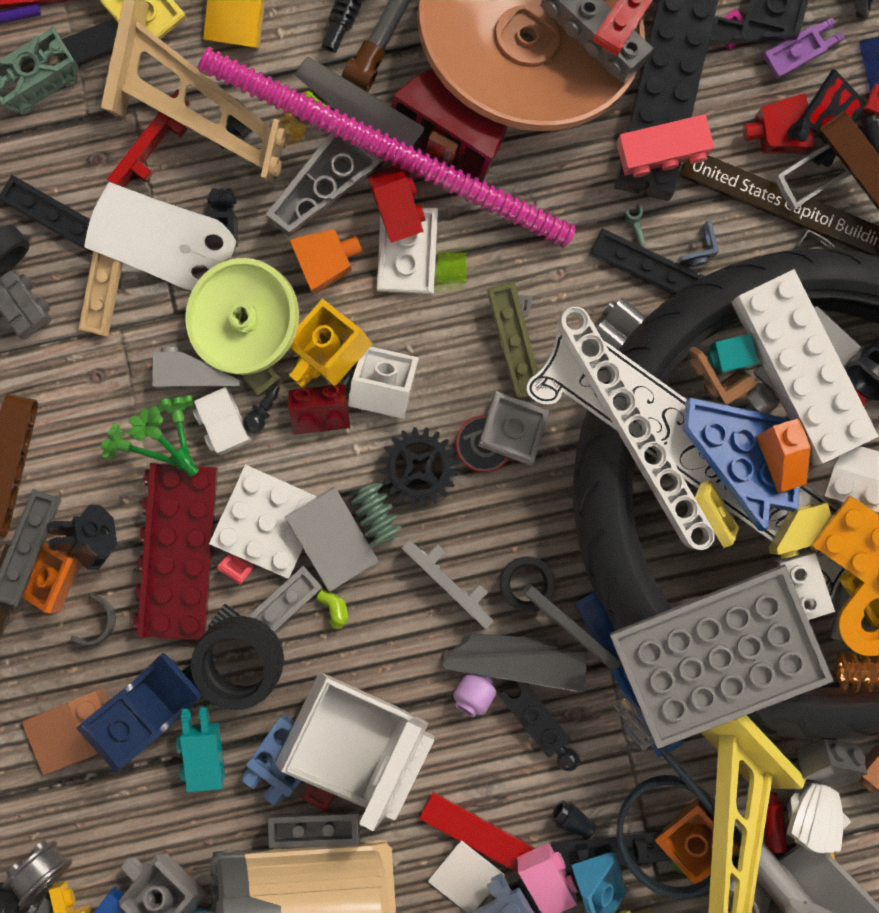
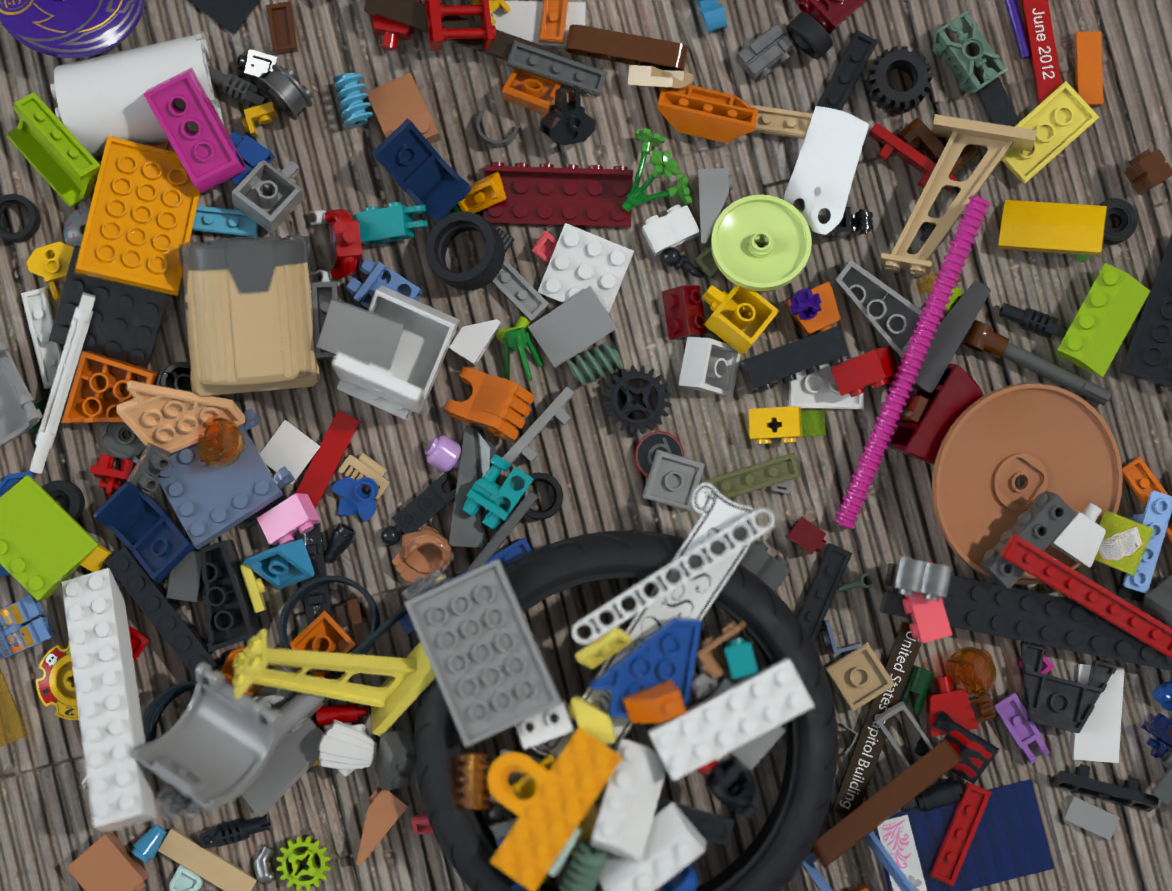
camera: 90 degrees right, 0 degrees up
(41, 433) = (656, 77): none -> tan slope
(45, 133) = (905, 61): none -> black tyre
(50, 792) = (352, 99): none -> medium azure piece
(86, 373) = (707, 113): none -> orange wedge
(123, 131) = (919, 134): none -> reddish brown beam
(171, 638) = (483, 194): none -> light orange slope
(220, 806) = (344, 243): none -> red torso
(316, 267) = (805, 304): none -> dark purple gear
(334, 791) = (360, 334): none -> light grey tile
(342, 654) = (474, 340): none -> white slope
(344, 604) = (517, 340): none -> green plant
(380, 285) = (793, 359): none -> black wedge
(419, 635) = (493, 403): none -> orange piece
(444, 293) = (761, 418): none -> yellow brick
(490, 781) = (368, 468): none -> tan piece
(524, 800) = (353, 497): none -> blue plate
(531, 636) = (497, 498): none -> teal hips
(581, 278) = (806, 536): none -> dark red brick
(592, 723) = (422, 554): none -> nougat hair
(641, 142) = (922, 577): none -> flat silver brick
(655, 801) = (357, 611): none -> reddish brown tile
(738, 96) = (973, 669): none -> clear orange cylinder
(743, 224) = (860, 676): none -> tan plate
(753, 158) = (918, 683): none -> dark green hinge
(780, 88) = (983, 707): none -> reddish brown piece

